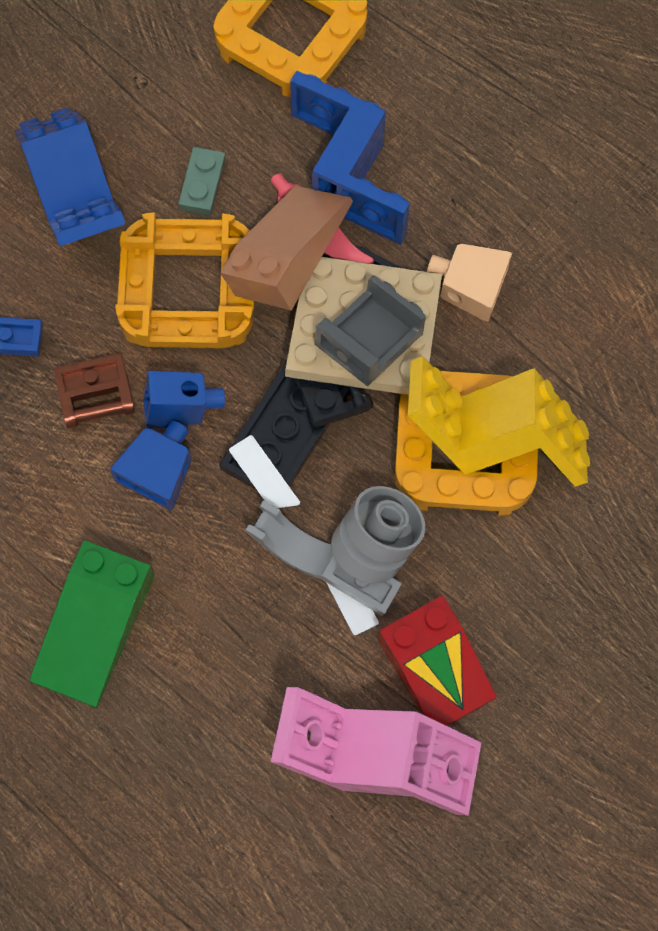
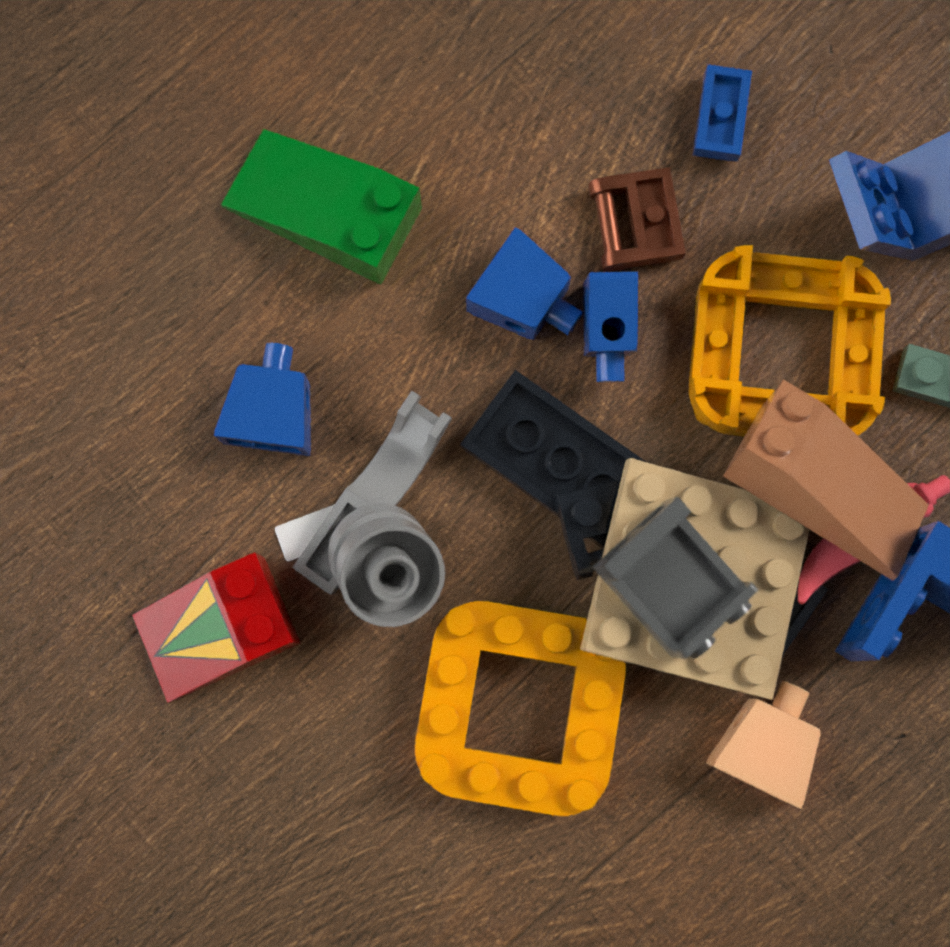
camera: 100 degrees right, 10 degrees up
(261, 643) = (268, 406): none -> blue torso
(263, 473) = (496, 425): white sticker -> none
(376, 751) = (94, 530): bright pink bracket -> none
(498, 421) = (527, 748): yellow bracket -> none

